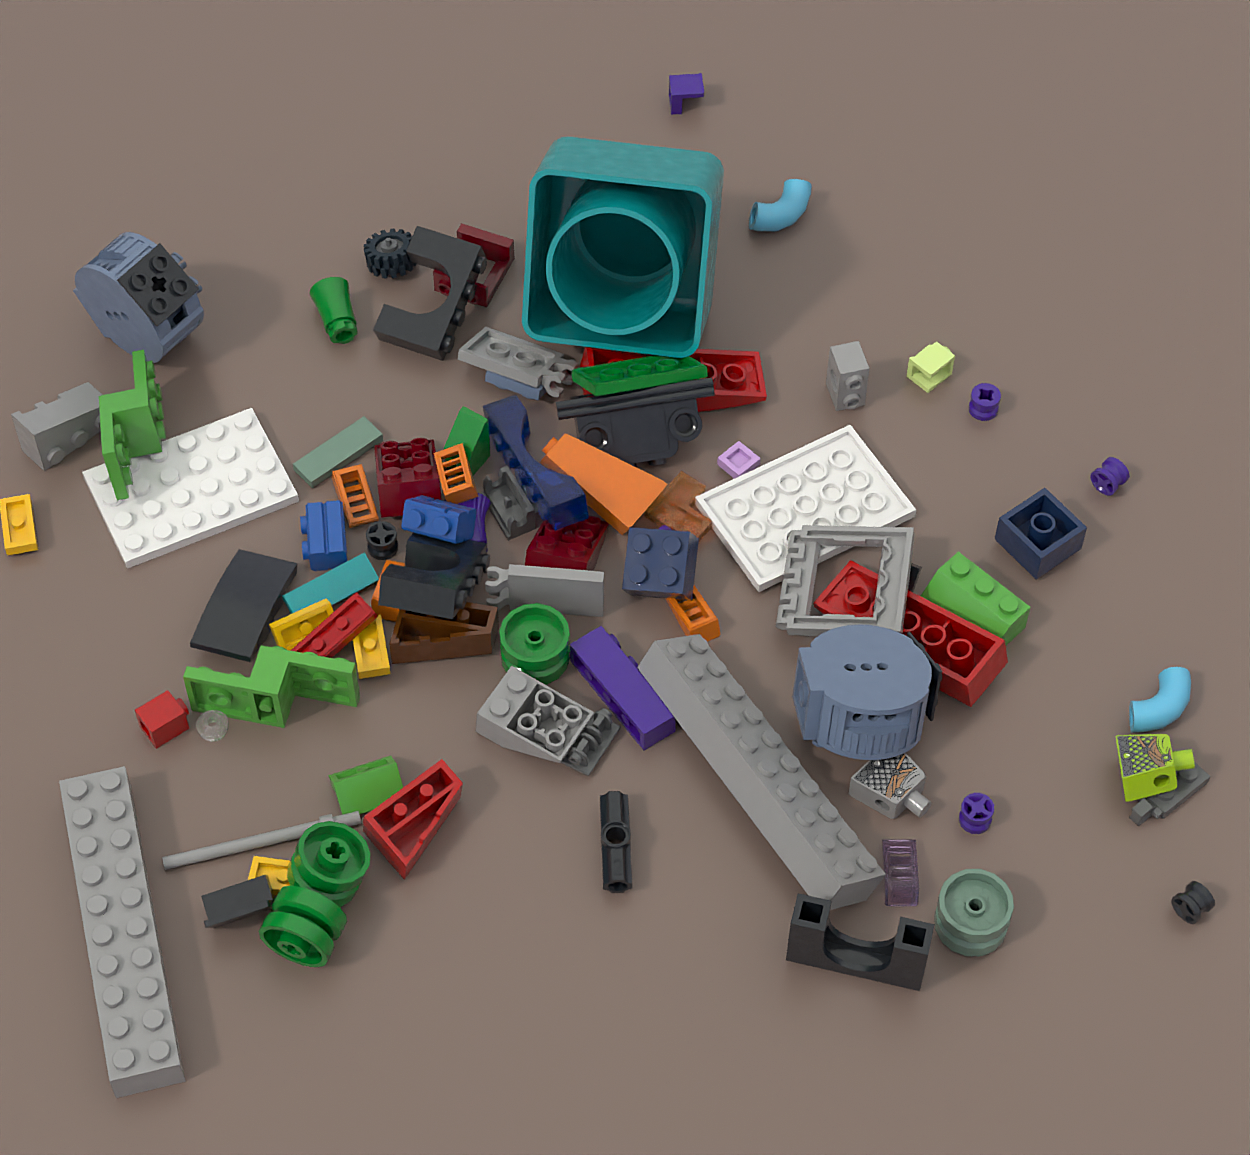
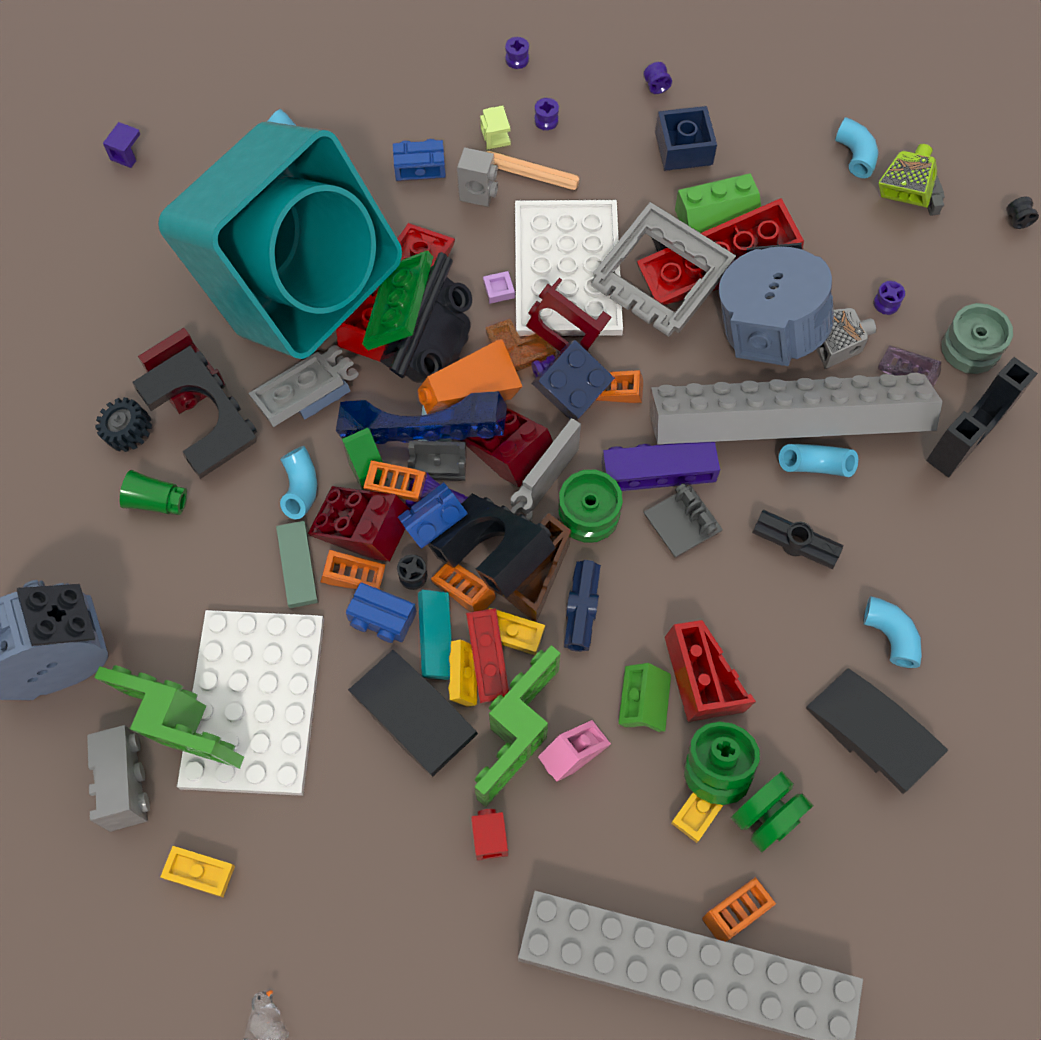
camera: 60 degrees left, 10 degrees up
(196, 936) = (721, 921): none -> orange slope
(215, 732) = (519, 805): clear plate -> none
(238, 901) = (717, 856): black panel -> none
(253, 842) = (666, 748): light grey bar -> none
(280, 747) = (573, 750): none -> bright pink slope
(415, 414) = (301, 483): none -> medium azure cylinder
(429, 690) = (582, 606): none -> dark blue piece
(444, 994) = (877, 730): none -> black slope
(531, 717) = (656, 542): light grey slope -> none
(569, 972) = (898, 628): none -> medium azure cylinder
(721, 554) = (554, 300): none -> dark red panel
(721, 821) = (818, 459): none -> medium azure cylinder
(840, 320) = (419, 160): none -> blue brick
(904, 424) = (536, 171): none -> light nougat axle
(1045, 340) = (517, 52): none -> dark purple wheel

